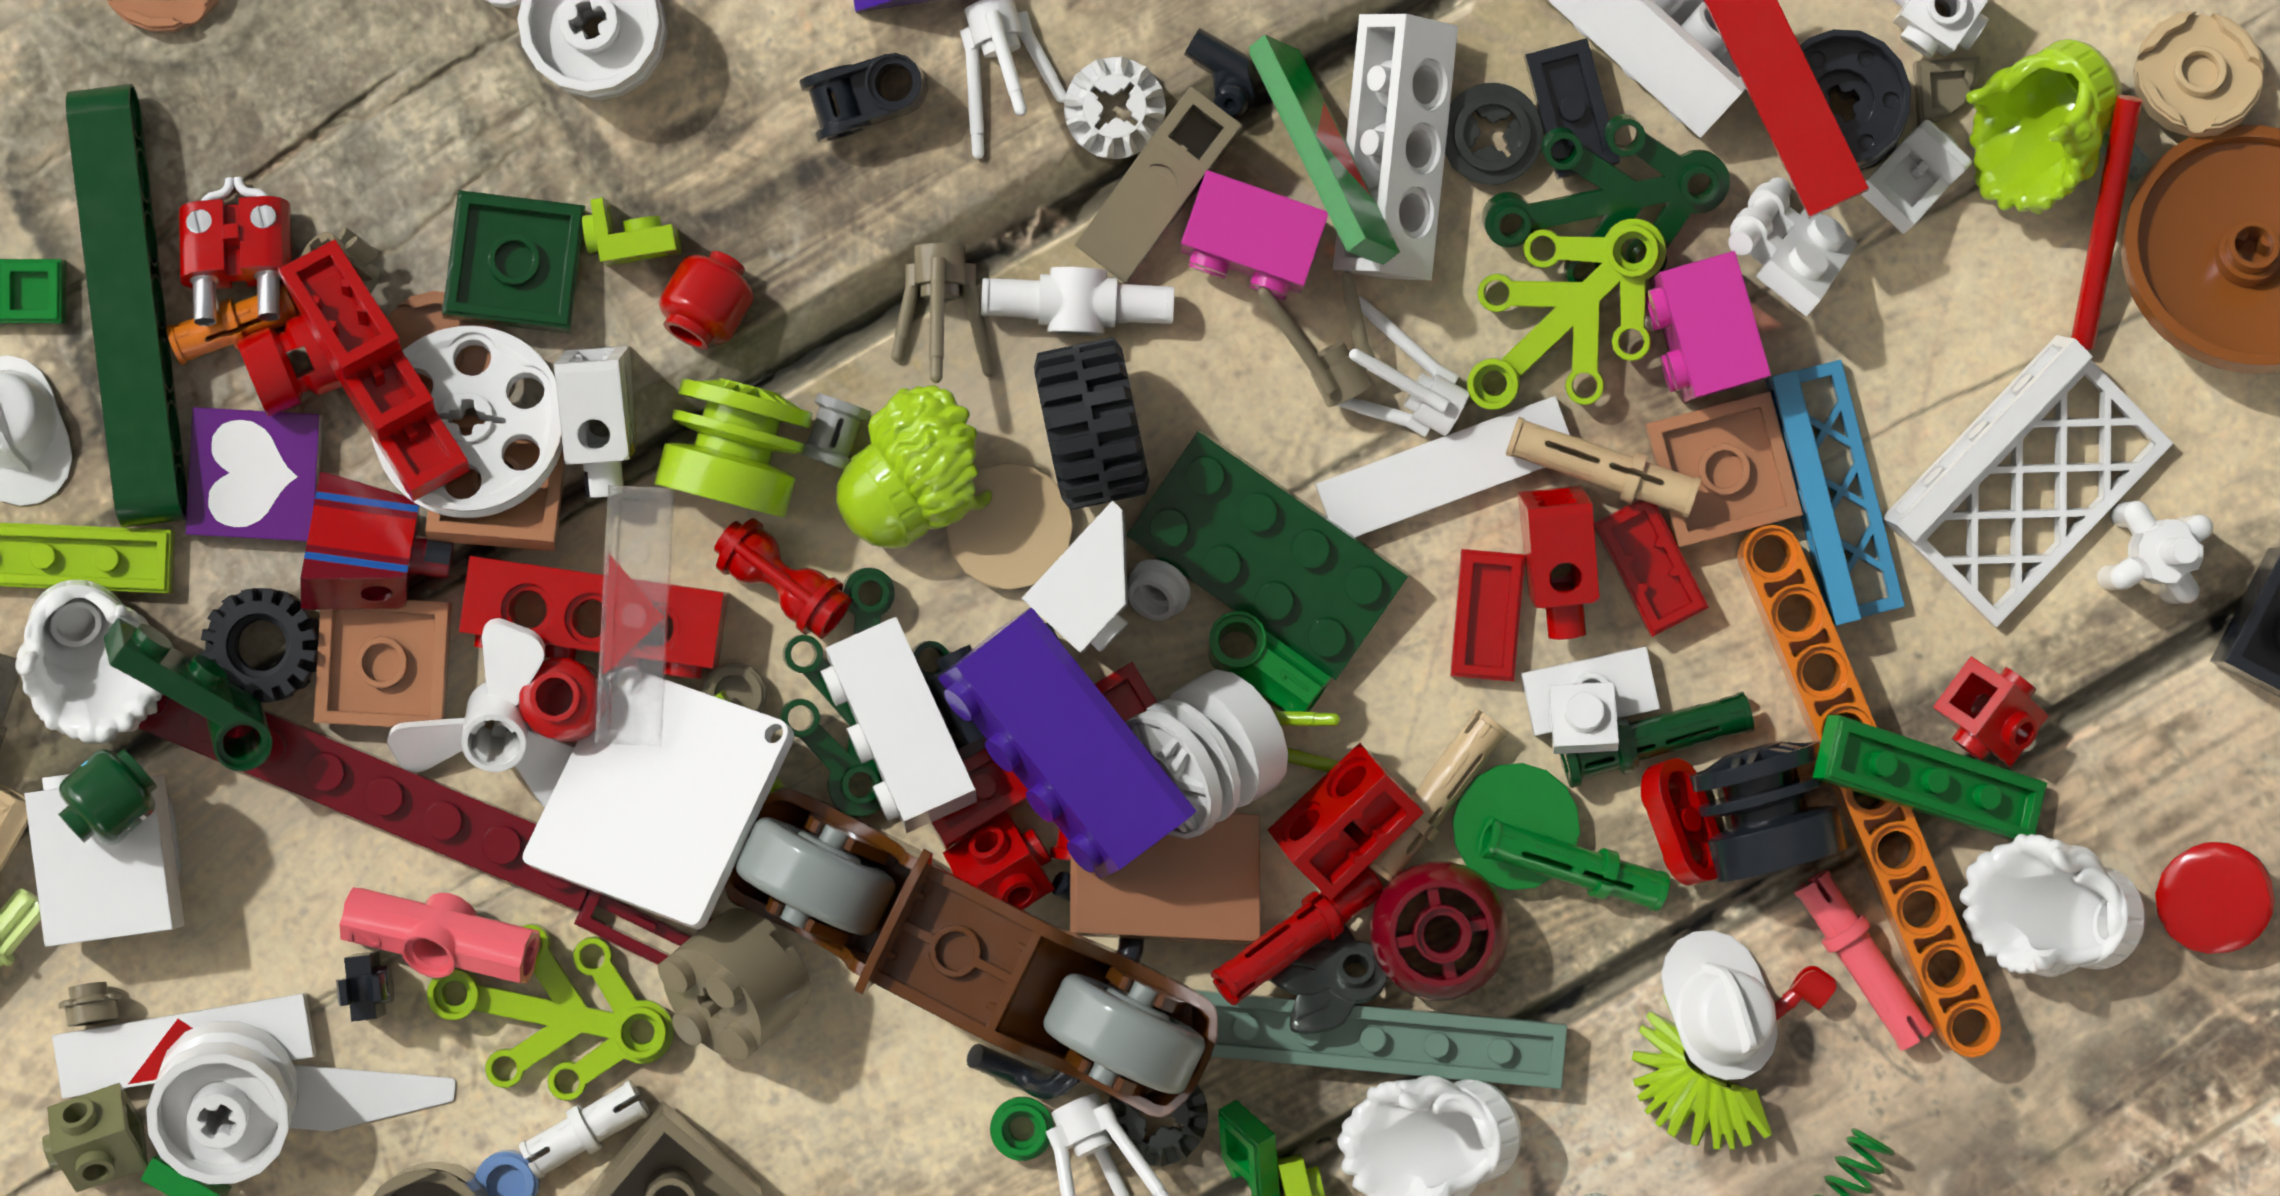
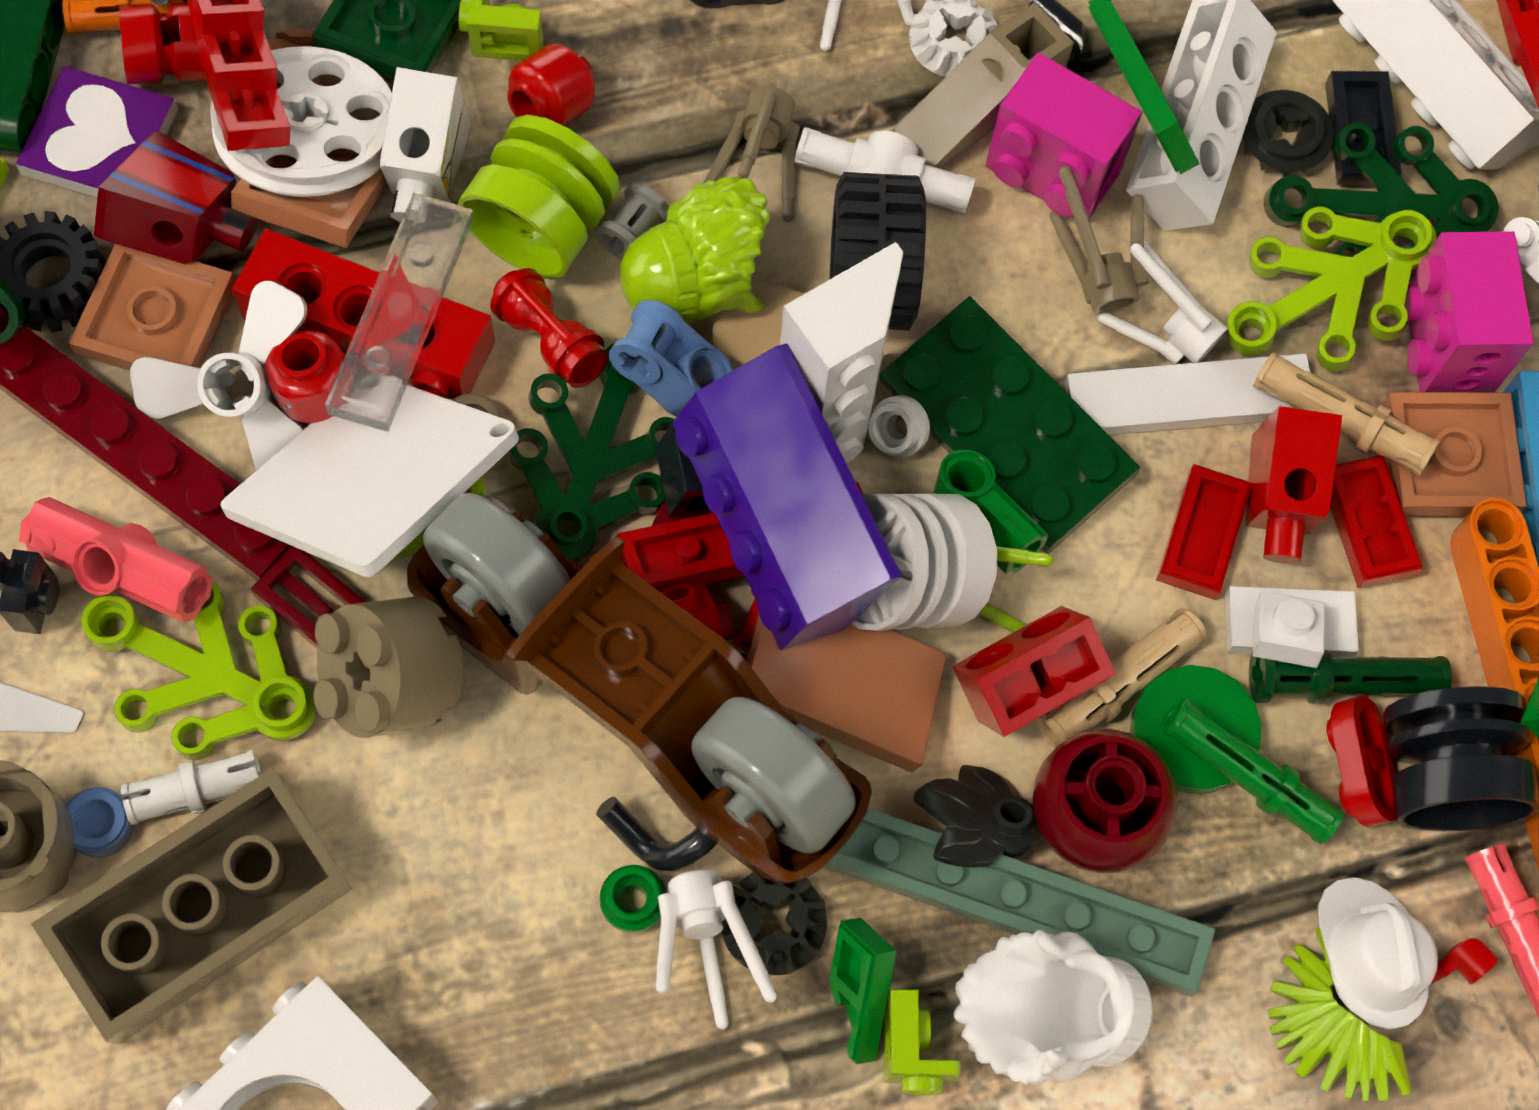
camera: 10 degrees right, 20 degrees down
(898, 726) = (622, 463): white brick -> none
(909, 587) = (667, 361): none -> medium blue piece
(1294, 936) = (983, 759): red pin -> none

